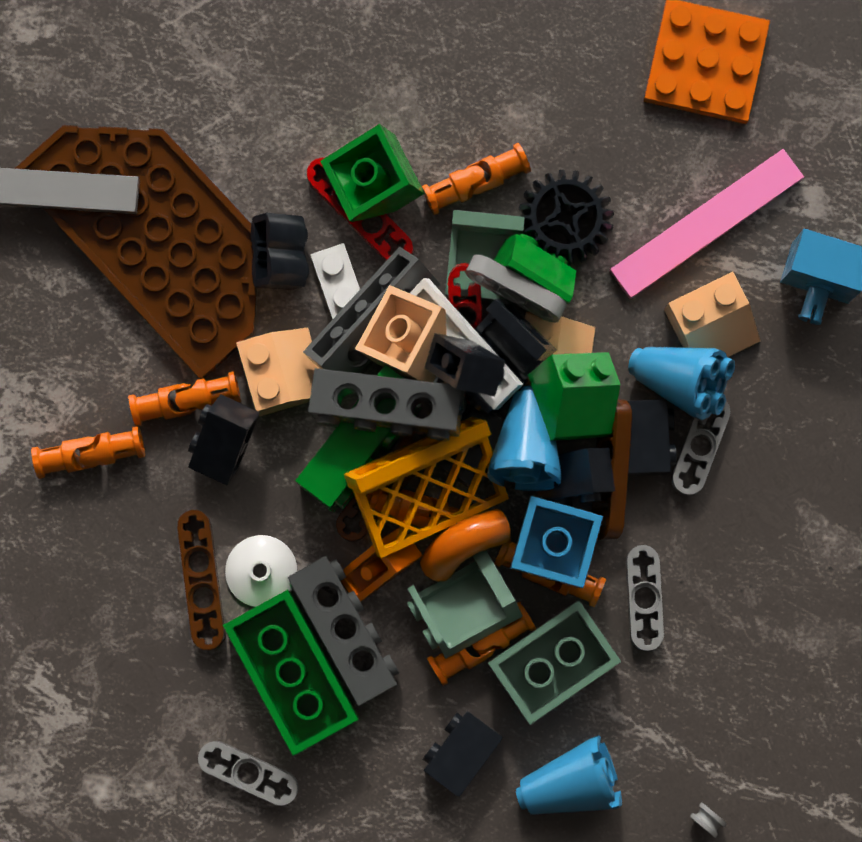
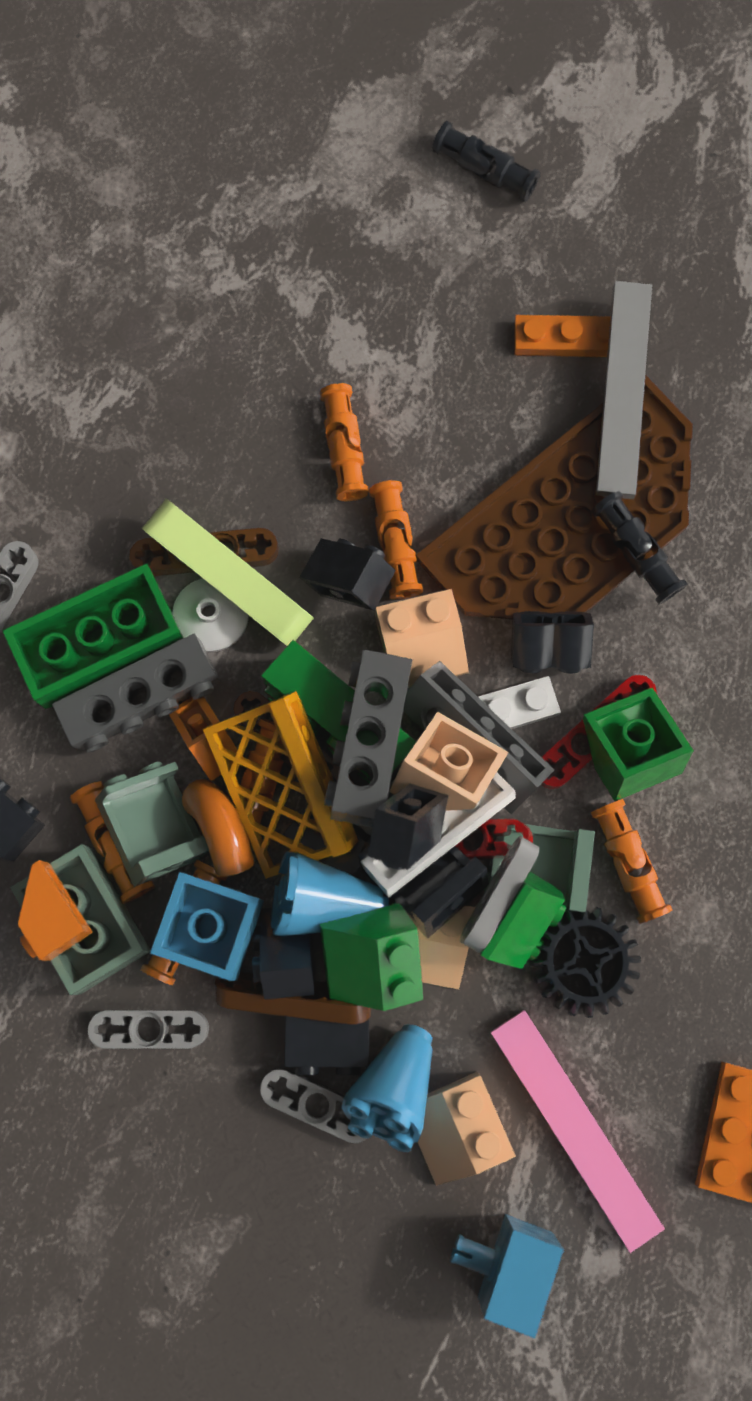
camera: 90 degrees right, 5 degrees down
(185, 176) = (635, 543): none -> black piece
(225, 553) = (227, 572): none -> yellowish green beam
(555, 681) = (49, 915): none -> orange slope

